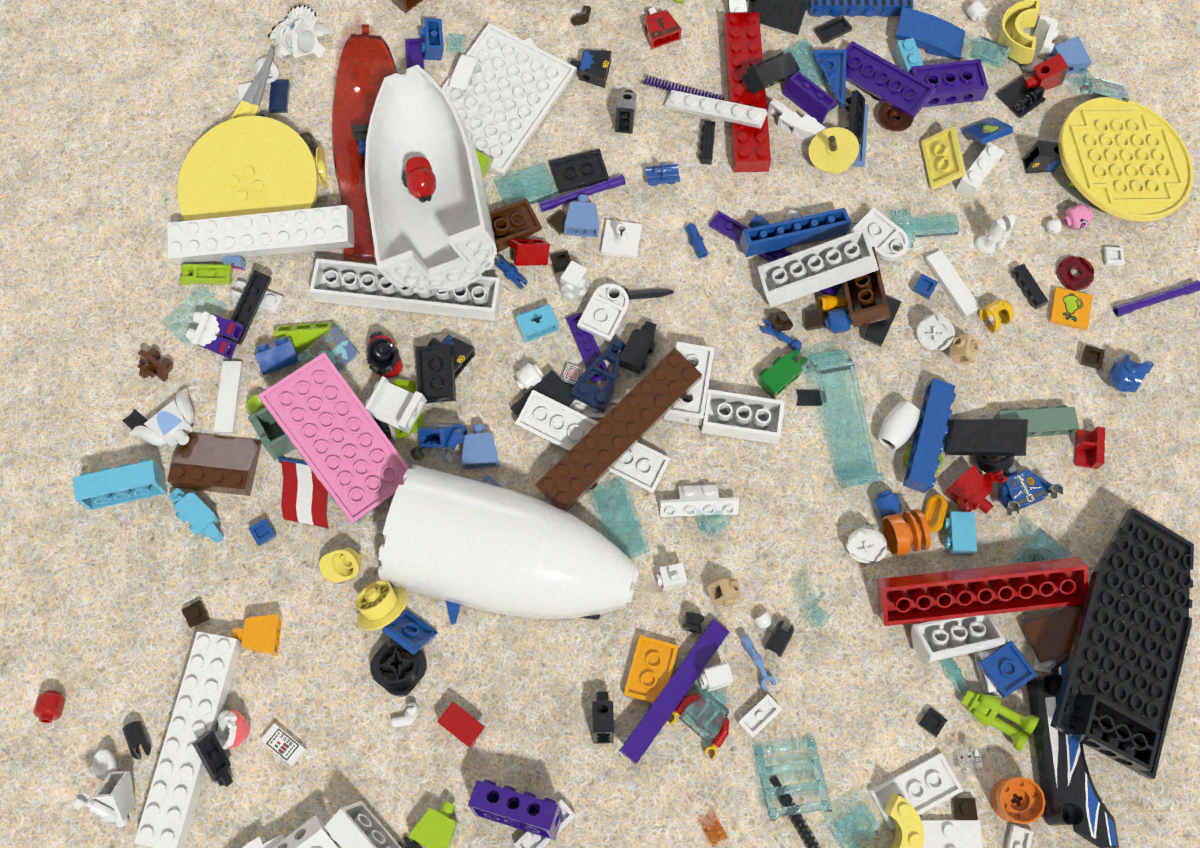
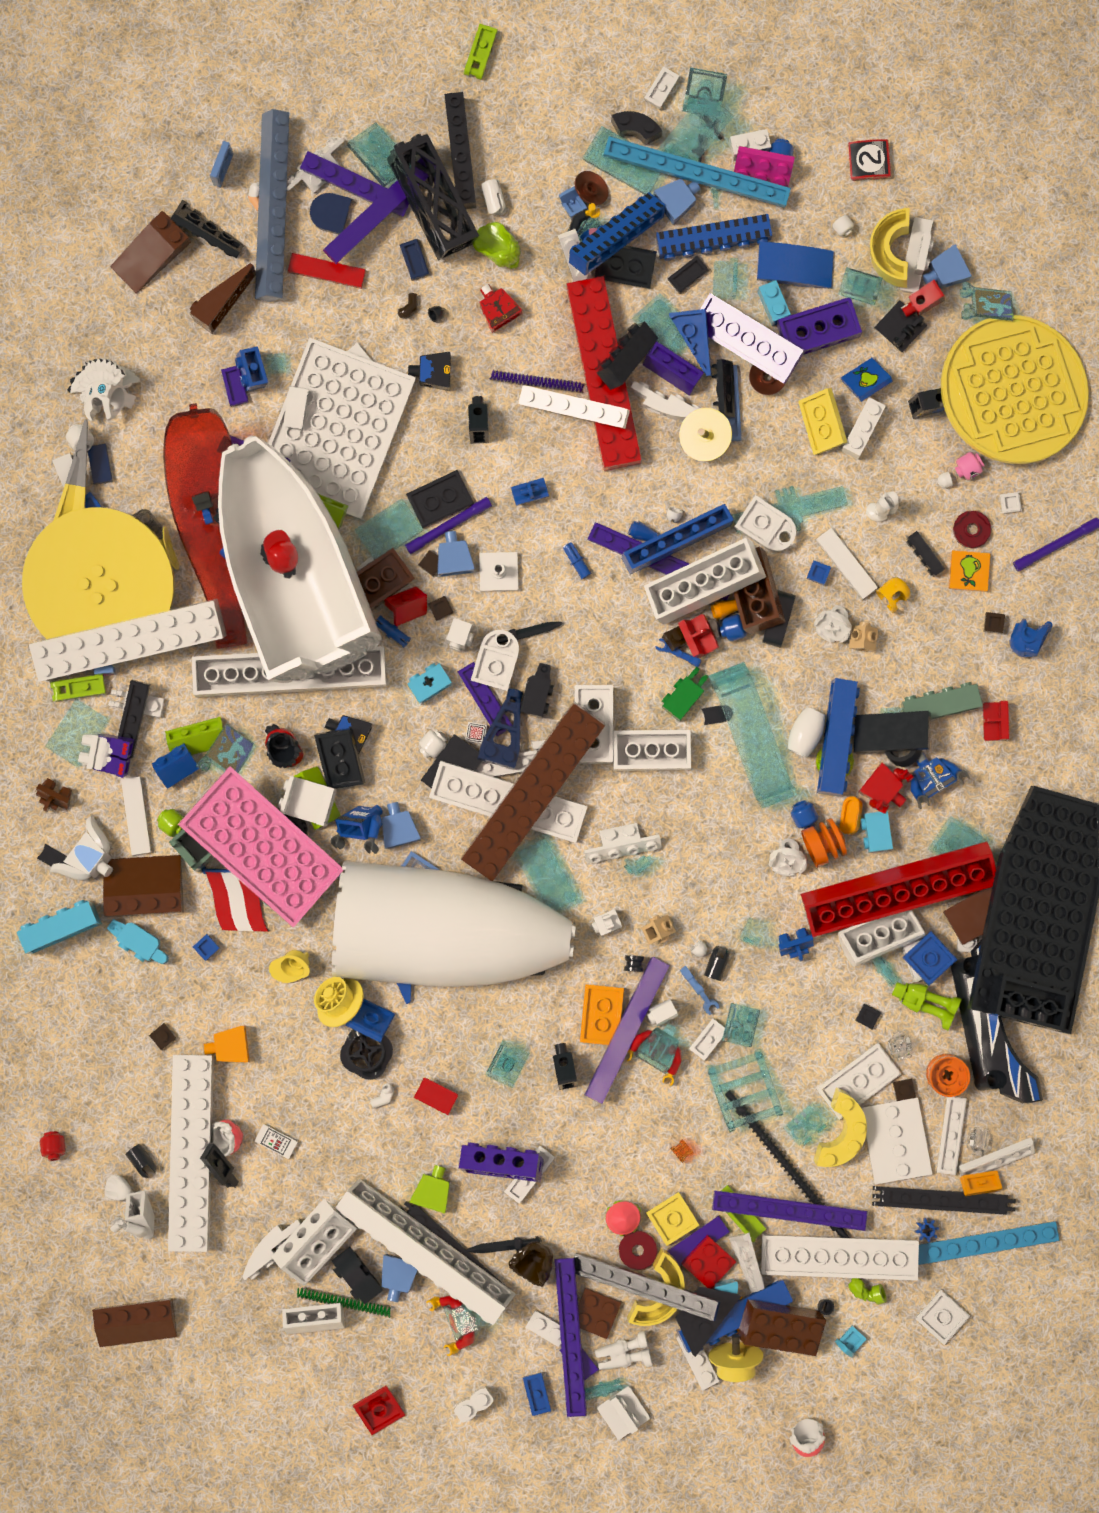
camera: 10 degrees left, 15 degrees up
(542, 704) = (507, 1064): none -> clear light blue slope
(604, 25) = (435, 313): none -> black hinge
(708, 142) = (571, 446): black piece -> none
(797, 706) = (741, 1025): none -> clear light blue bracket
(804, 322) = (698, 636): none -> red panel
(866, 634) = (796, 947): none -> blue hips
(867, 35) = (725, 279): none -> clear light blue panel

